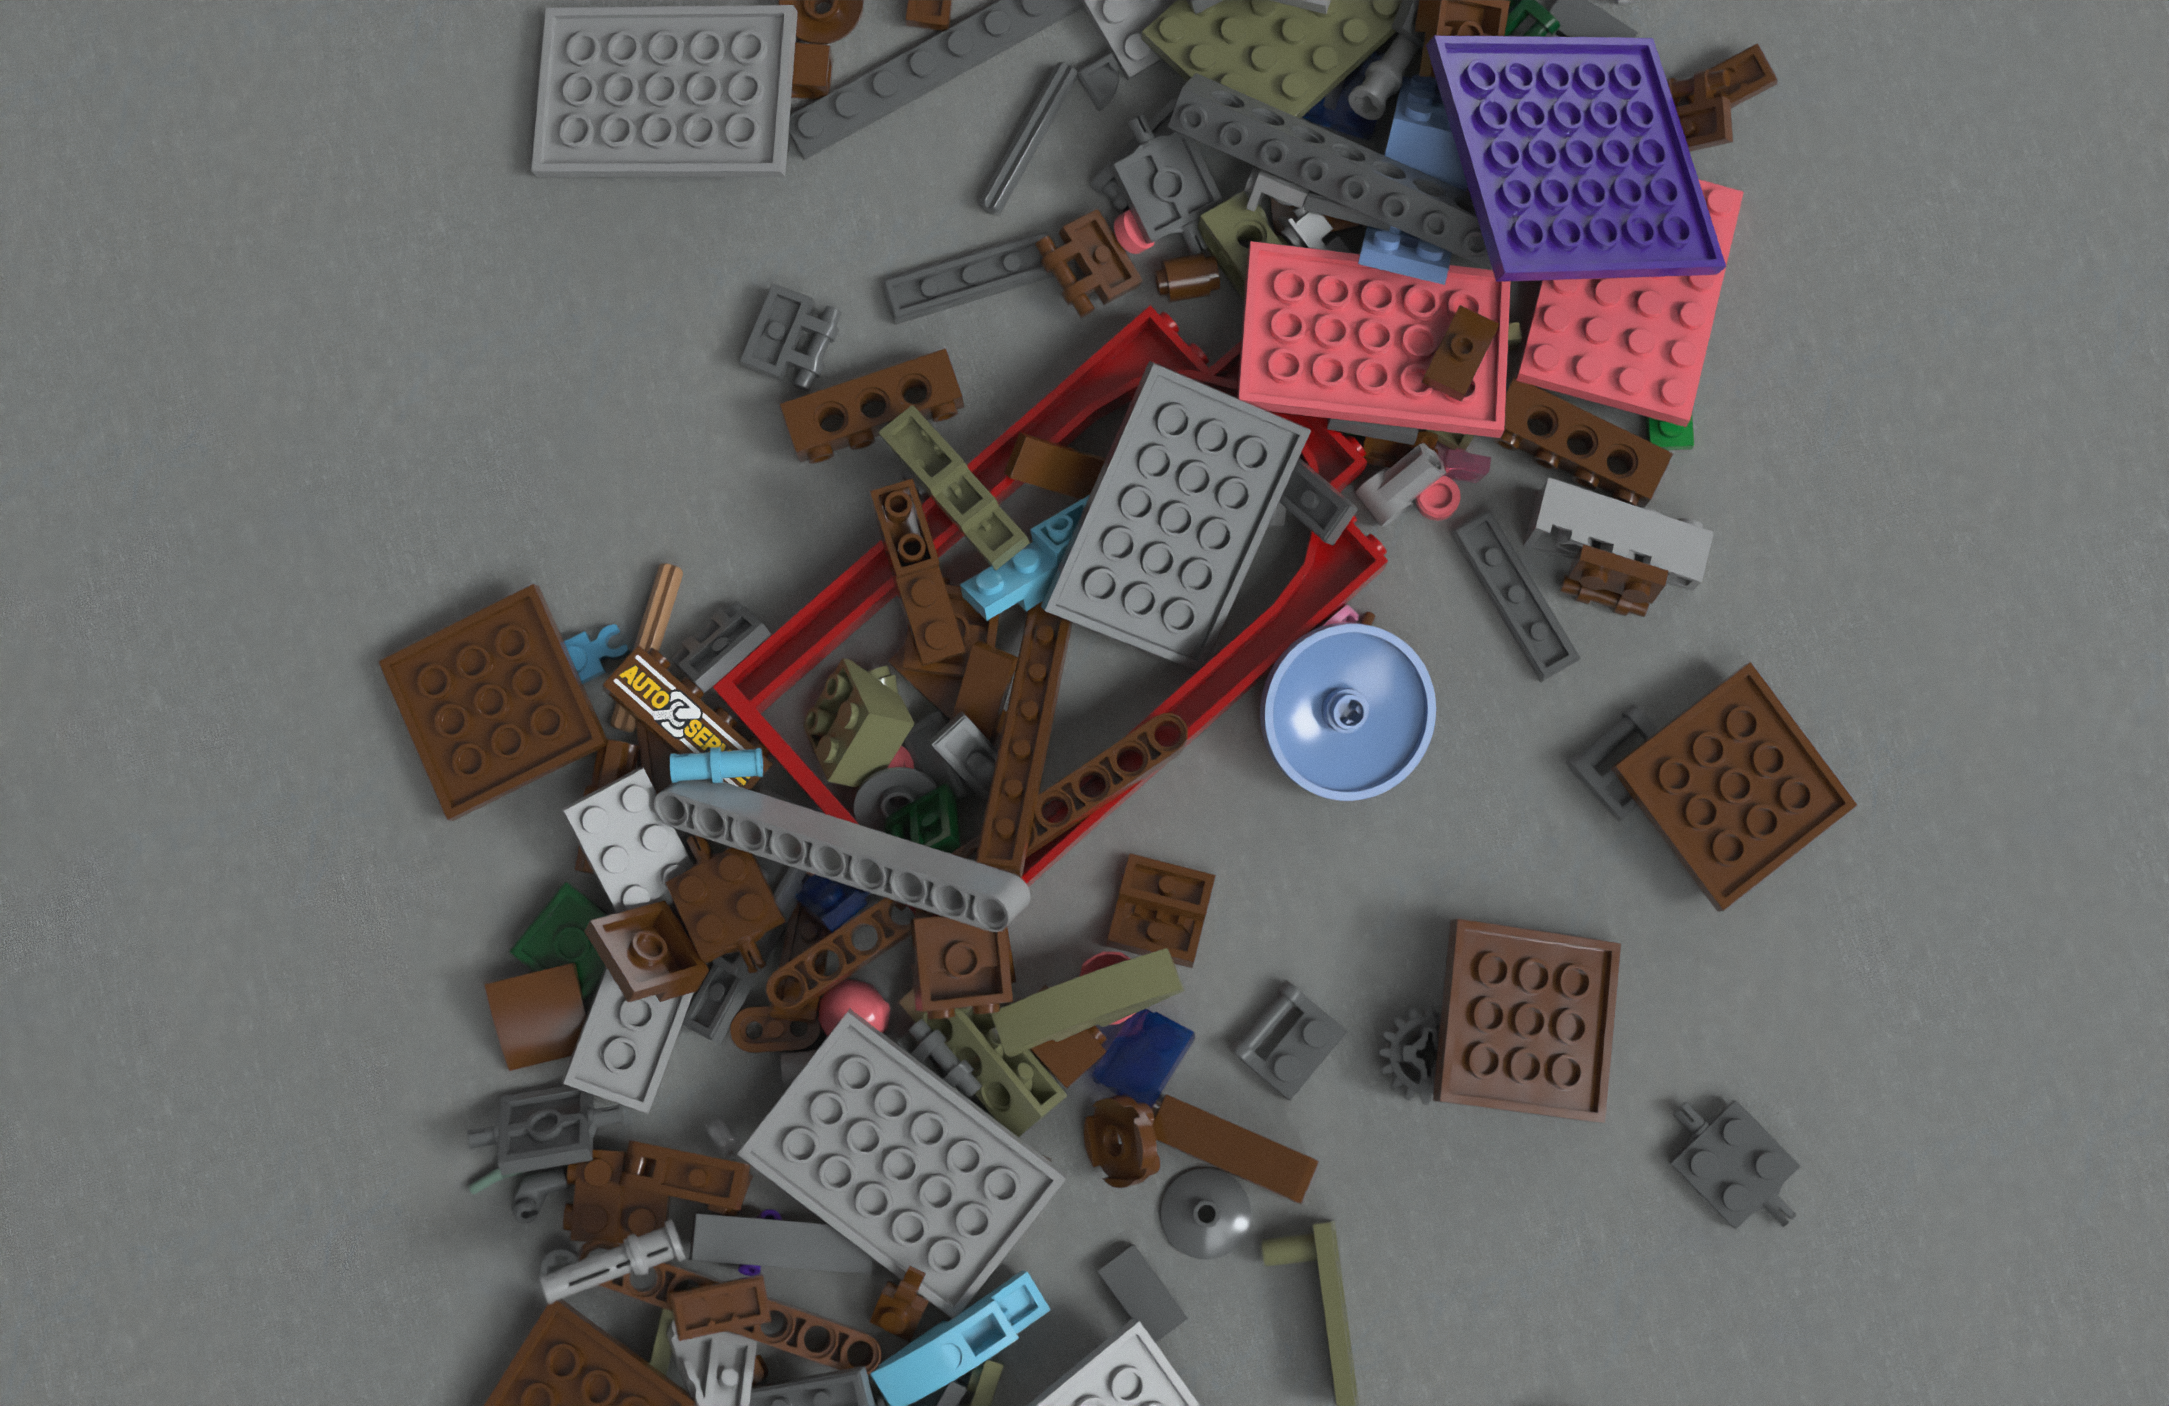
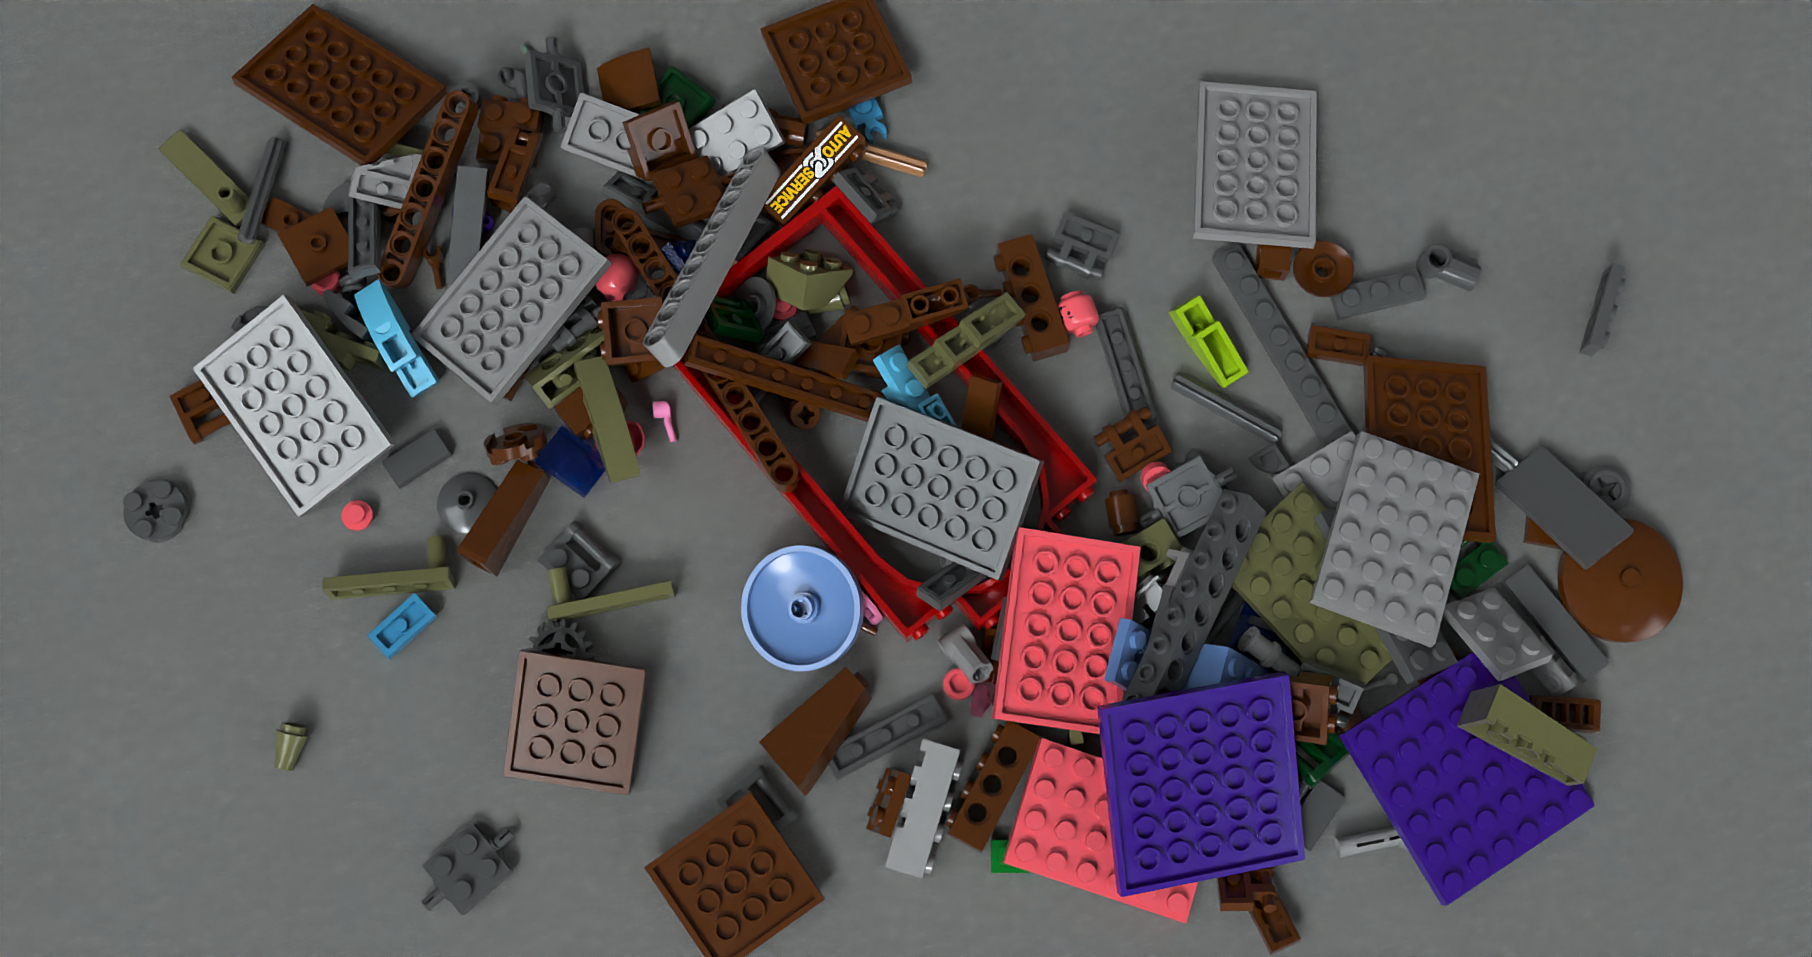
camera: 90 degrees right, 5 degrees down
(636, 1256) = (456, 121): light grey pin -> none
(716, 765) = (781, 185): medium azure pin -> none
(720, 1307) = (422, 177): reddish brown plate -> none
(840, 1294) = (435, 262): none -> reddish brown hand
(866, 483) = (975, 293): none -> reddish brown hand
(897, 338) = (1078, 313): none -> coral head
(900, 1306) = (421, 300): reddish brown plate -> none
(930, 161) = (1208, 341): none -> lime slope
(1056, 932) = (662, 409): none -> bright pink hand
(1073, 718) = (796, 413): none -> reddish brown wheel
(1160, 909) = (674, 479): reddish brown slope -> none
(1233, 1375) = (357, 515): none -> coral plate
(1364, 1049) = (567, 609): none -> olive piece
(1396, 1290) = (402, 626): none -> dark azure plate
(1460, 353) = (1053, 690): reddish brown plate -> none
(1517, 685) = (817, 728): none -> reddish brown slope

